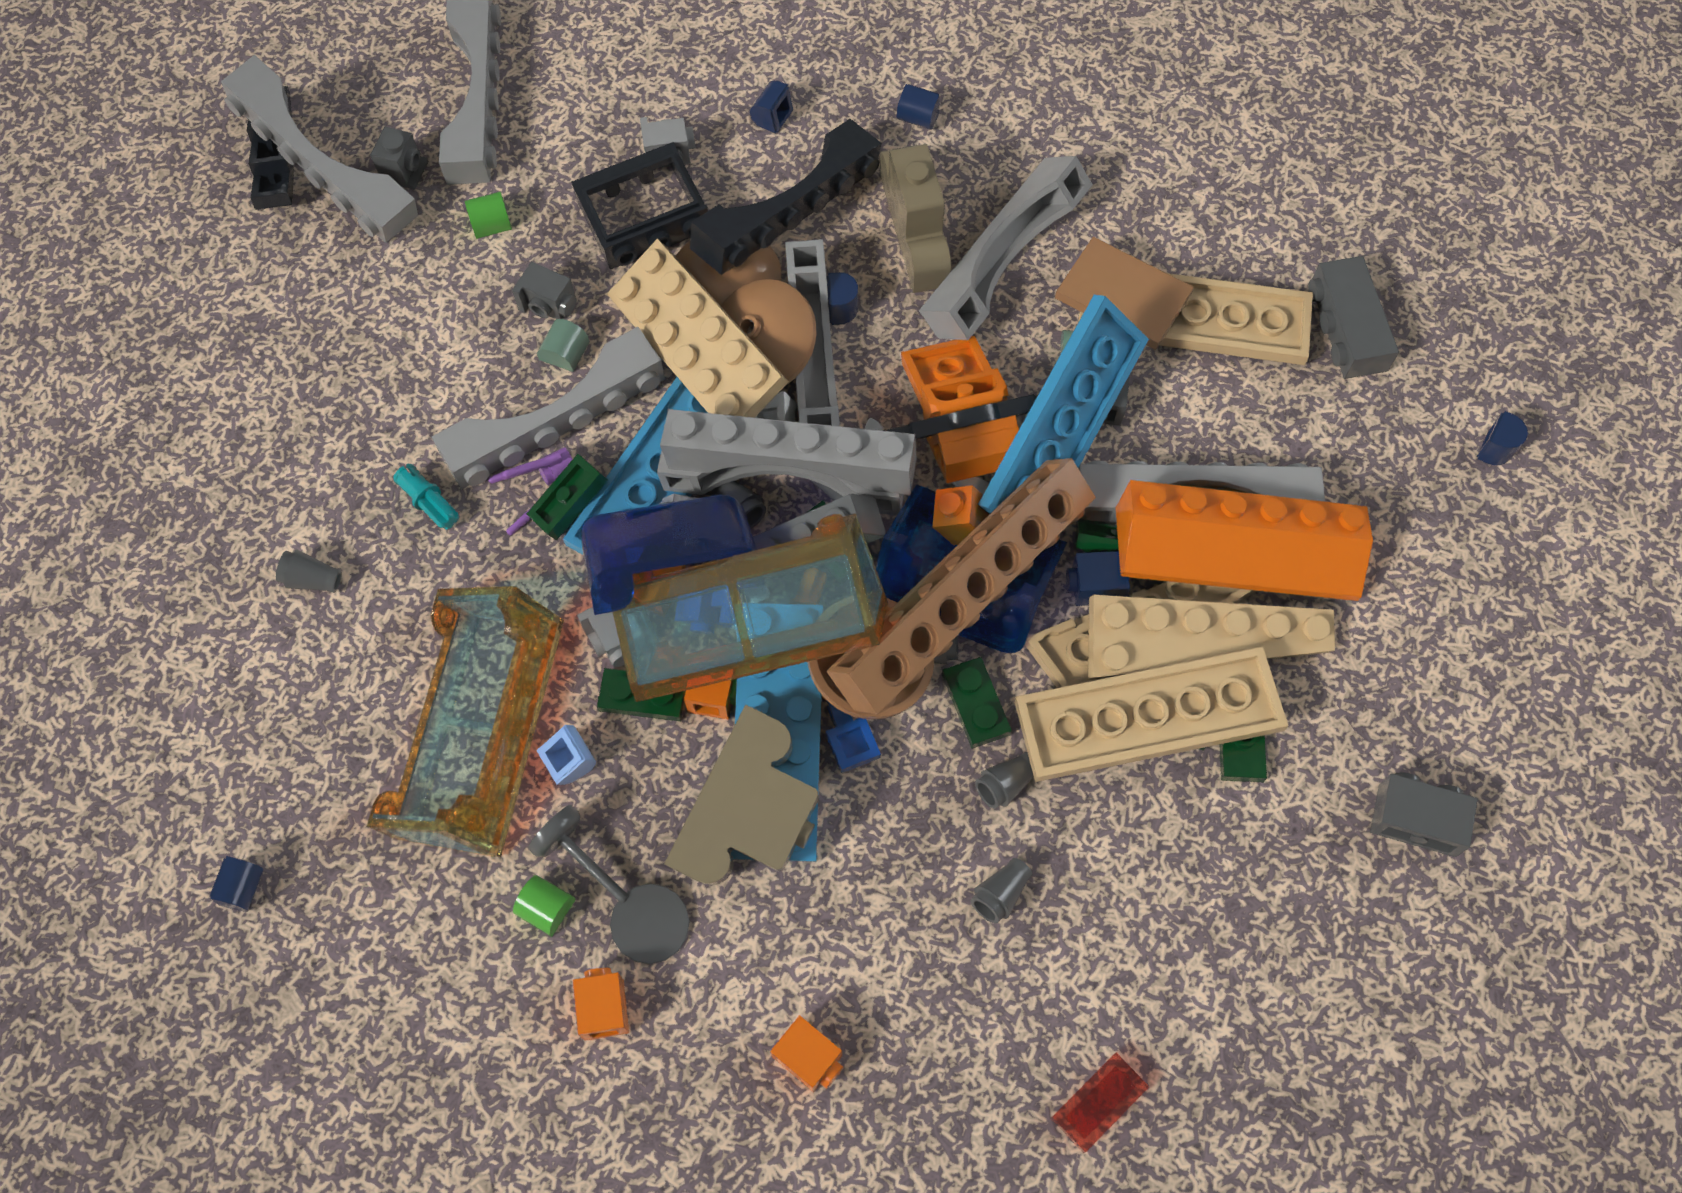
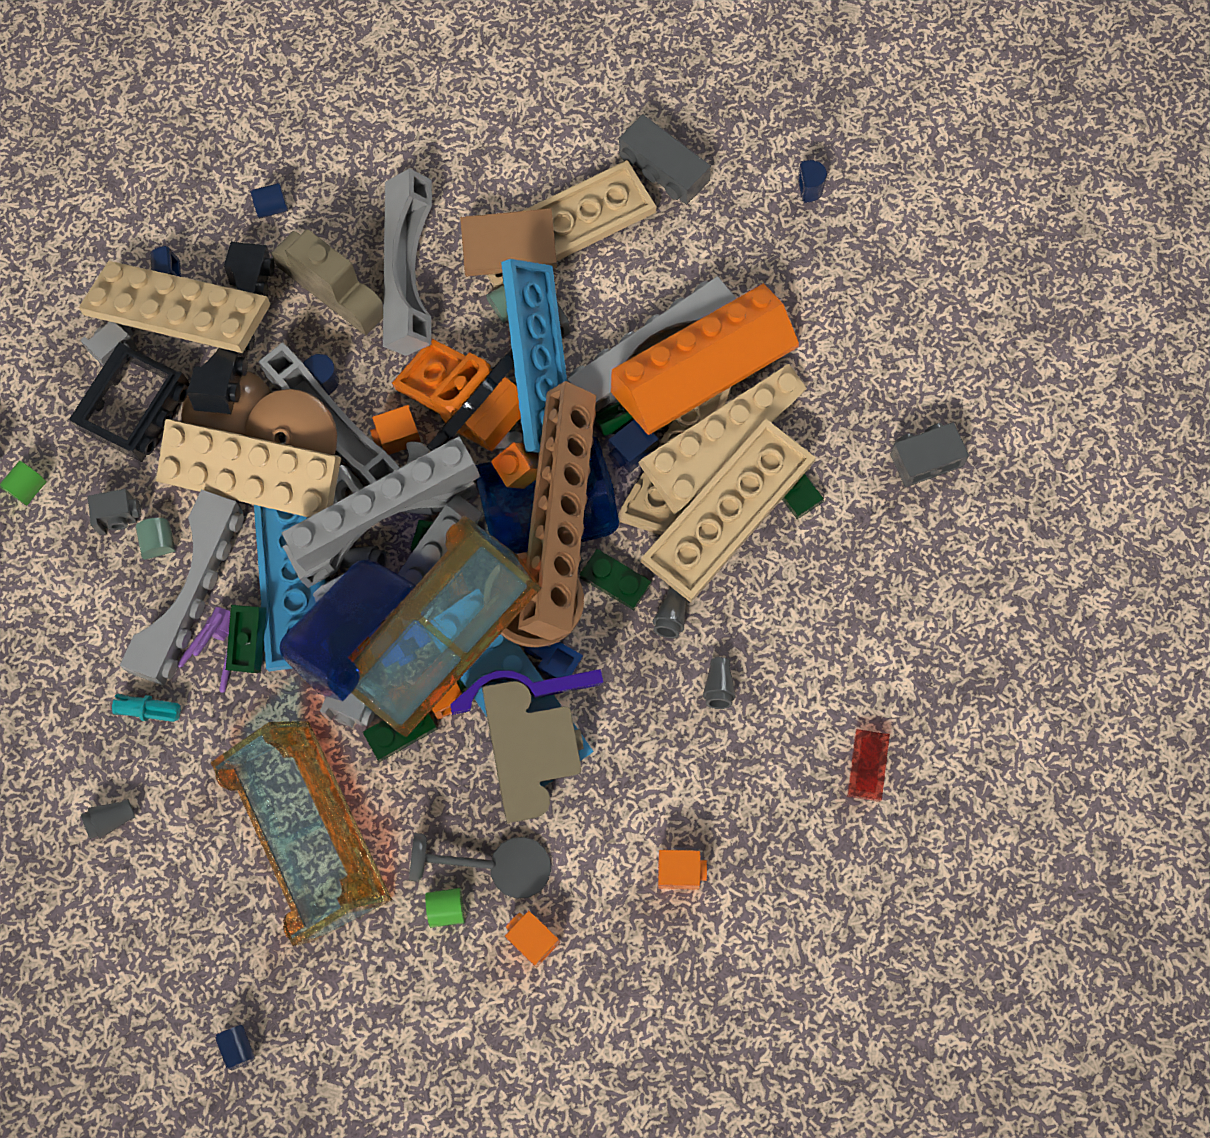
camera: 35 degrees left, 5 degrees up
(566, 756) = (384, 805): light blue brick -> none
(721, 707) = (537, 689): none -> dark purple piece
(750, 142) = (175, 306): none -> tan plate
(867, 398) = (394, 430): none -> orange brick

